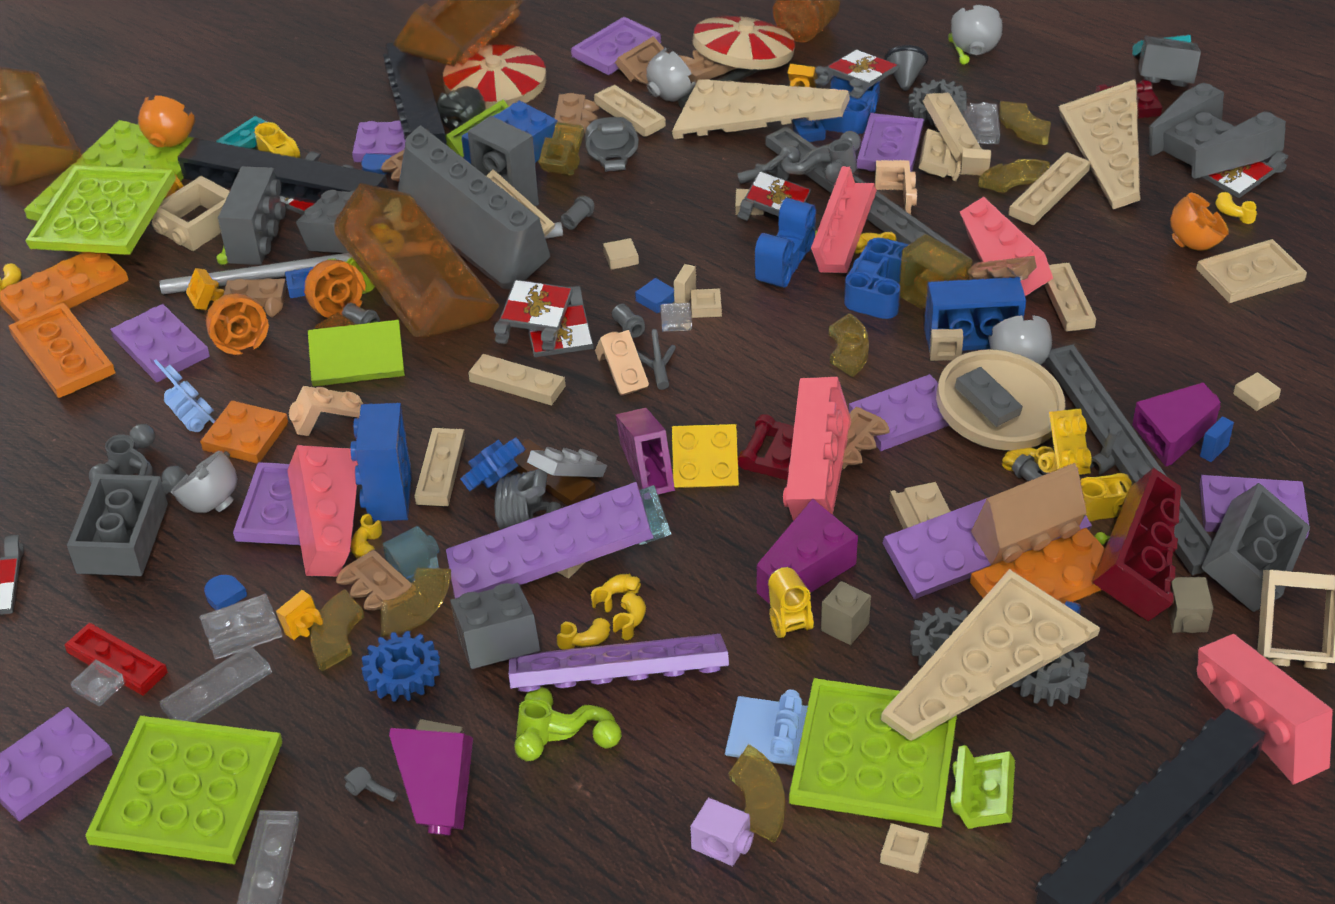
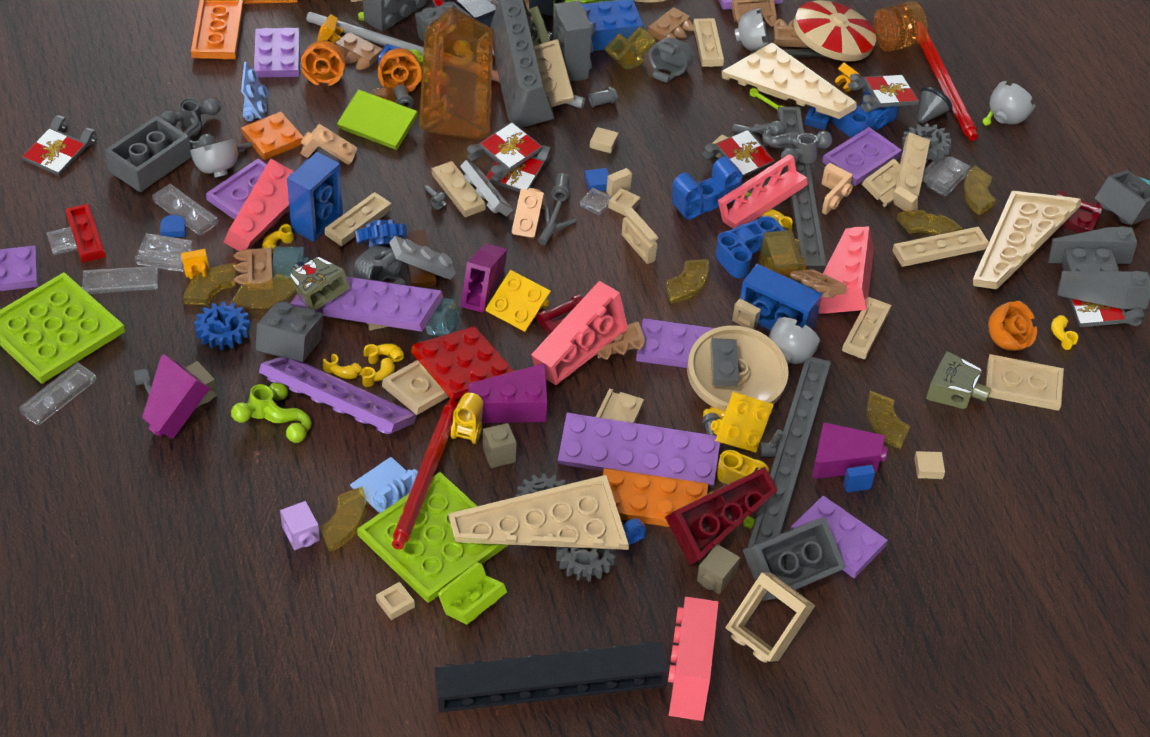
camera: 30 degrees right, 5 degrees up
(206, 563) = (179, 204): none -> clear tile
(479, 551) = (318, 282): none -> olive torso
(507, 400) = (437, 198): none -> dark grey hand
(550, 362) = (485, 188): none -> light grey plate
(694, 603) = (414, 388): none -> tan plate
(714, 550) = (460, 360): none -> red plate
(722, 137) = (754, 93): none -> lime hinge
(764, 323) = (639, 235): none -> tan plate
(859, 764) = (424, 476): none -> red piece
(890, 41) = (949, 88): none -> red piece
(1030, 515) = (661, 451): medium nougat slope -> none
(1170, 372) = (885, 421): none -> clear yellow tile
(1201, 301) = (956, 383): none -> olive torso

